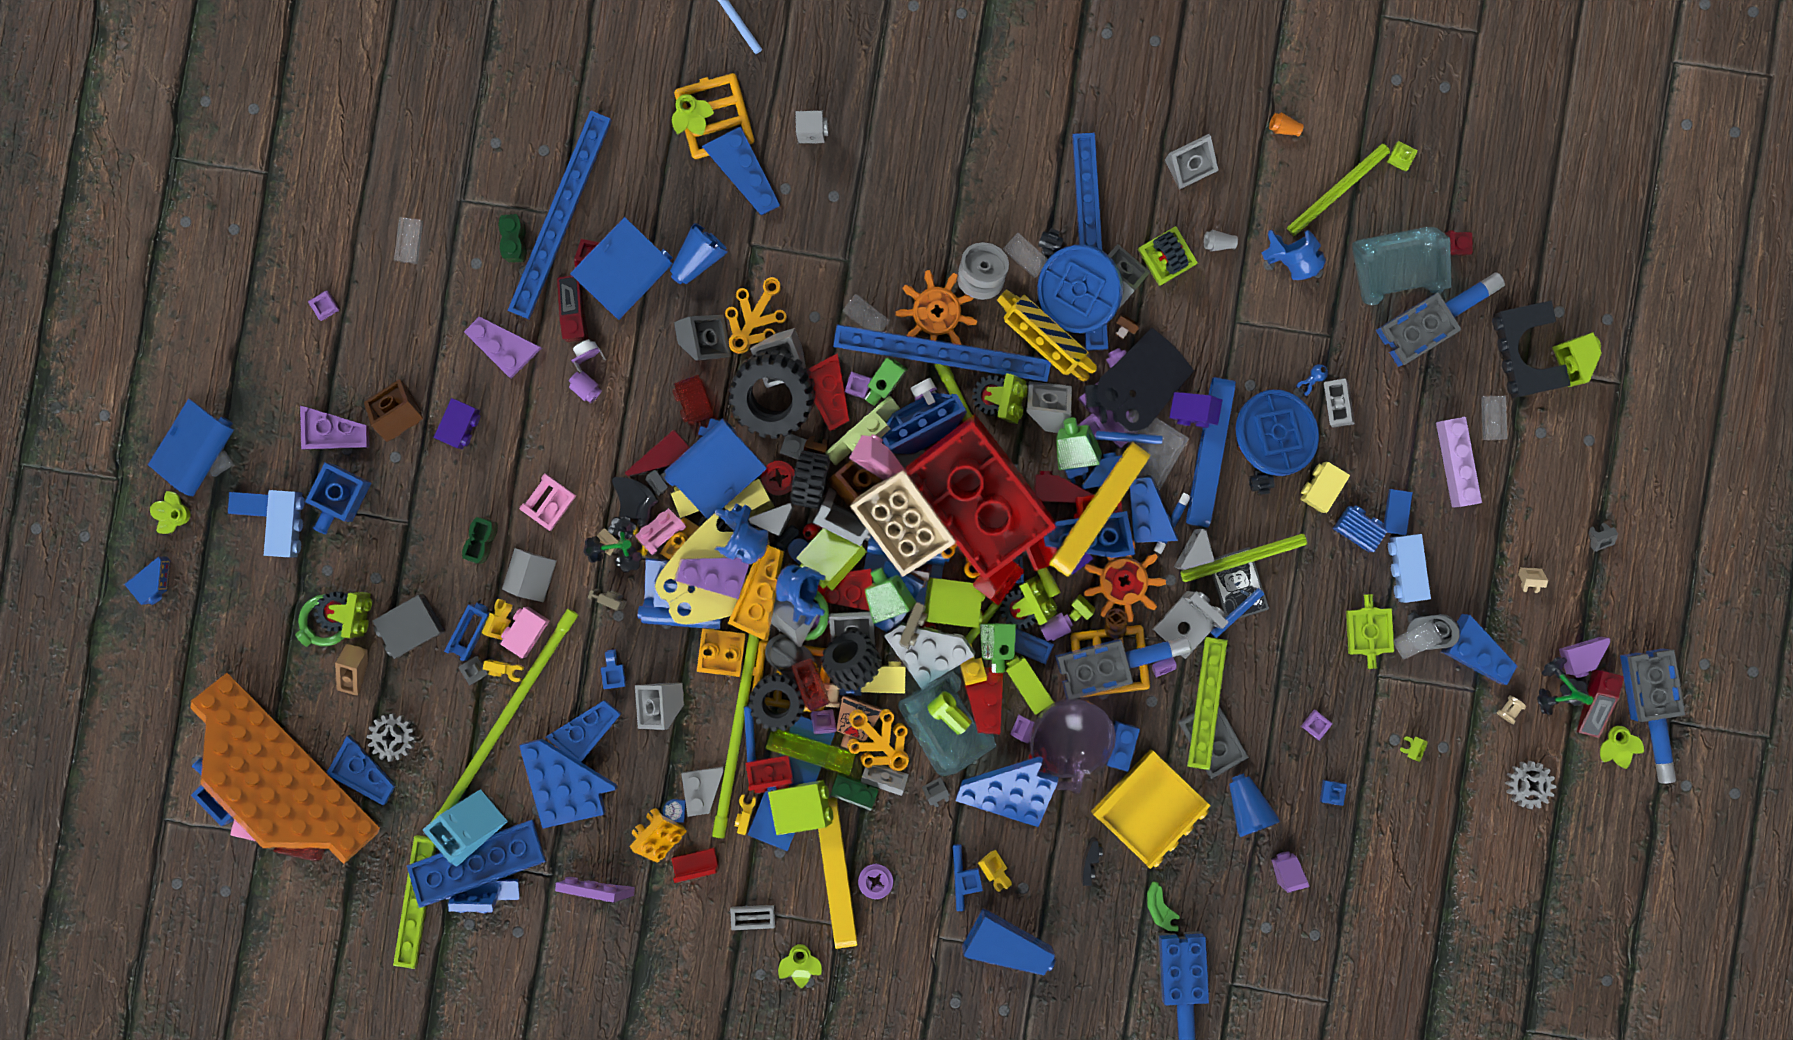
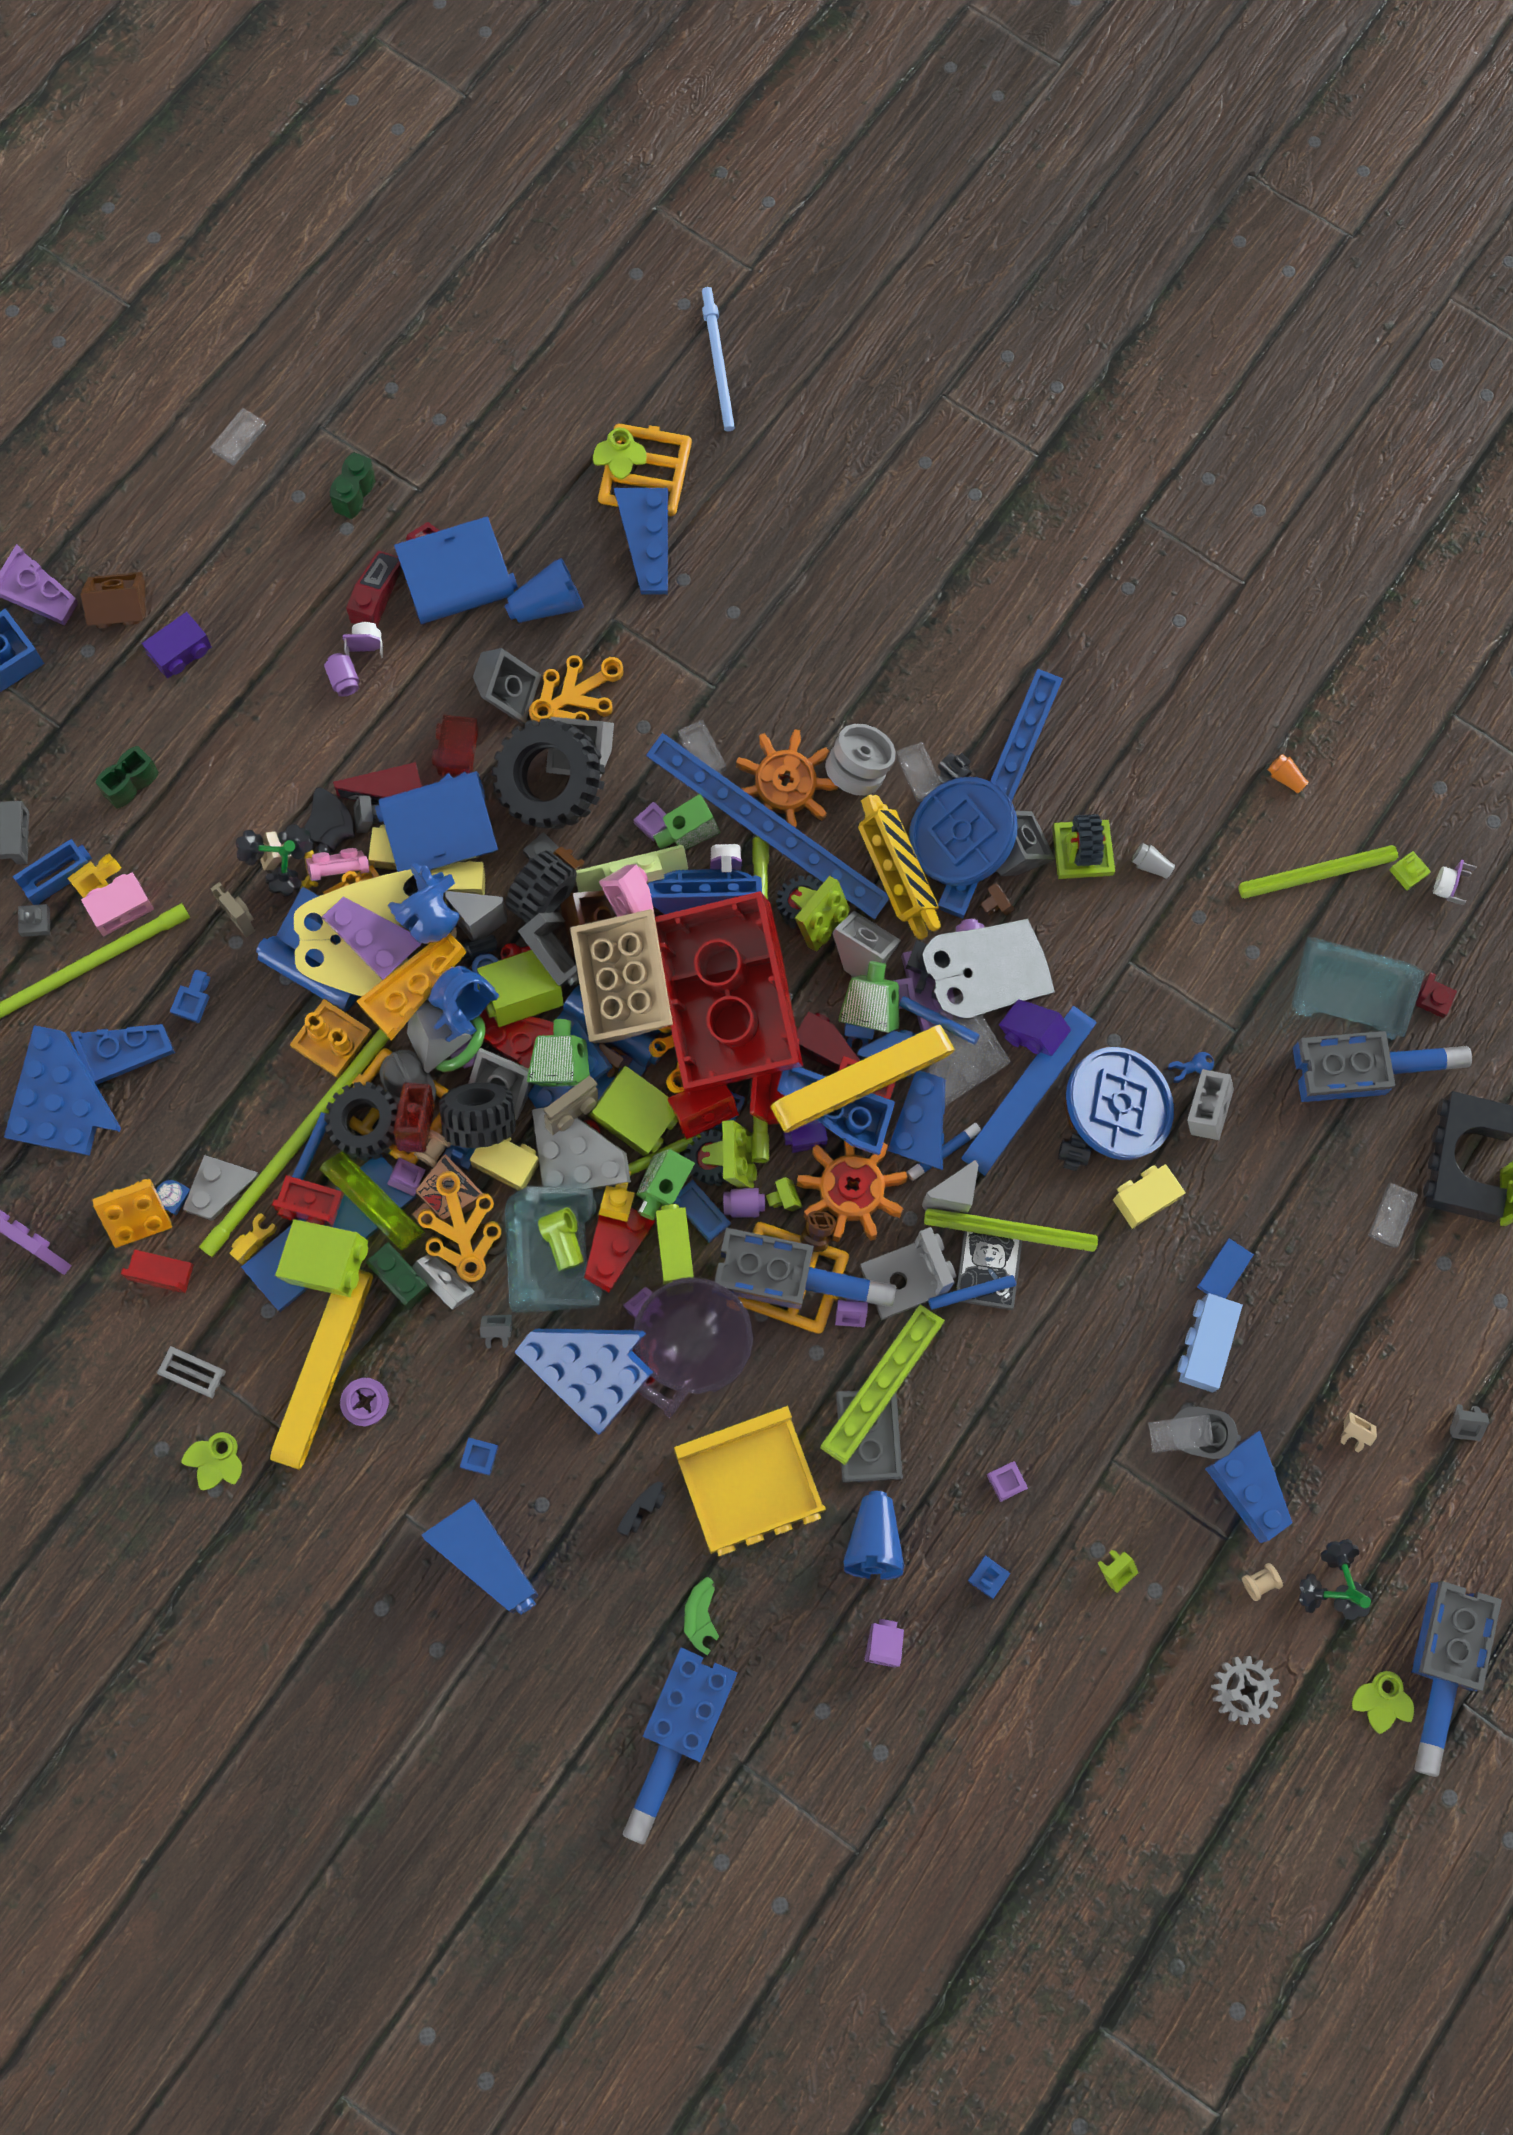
camera: 20 degrees right, 15 degrees down
(324, 305) = (106, 459): medium lavender tile -> none
(498, 668) = (62, 929): yellow plate -> none
(501, 346) = (275, 591): medium lavender wing -> none
(529, 575) = (161, 846): light grey slope -> none
(552, 507) = (231, 784): bright pink plate -> none
(559, 215) = (416, 489): blue plate -> none
(658, 704) = (224, 1058): light grey slope -> none
(773, 486) = (497, 868): red gear -> none
(811, 126) = (745, 523): light grey brick -> none
(830, 392) = (616, 811): red wing -> none
(958, 866) = (476, 1433): blue bar -> none
(994, 870) = (518, 1457): yellow plate -> none
(1124, 745) = (751, 1383): blue brick -> none
(1192, 161) = (1161, 759): light grey slope -> none
(1299, 257) = (1238, 922): blue piece -> none
(1360, 528) = (1170, 1265): blue brick -> none
(1370, 631) = (1126, 1396): lime plate -> none
(1433, 152) = (1448, 881): none -> piece
(1458, 462) = (1326, 1244): lavender brick -> none
(1584, 656) = (1383, 1558): medium lavender slope -> none
(1605, 690) = (1379, 1628): dark red slope -> none

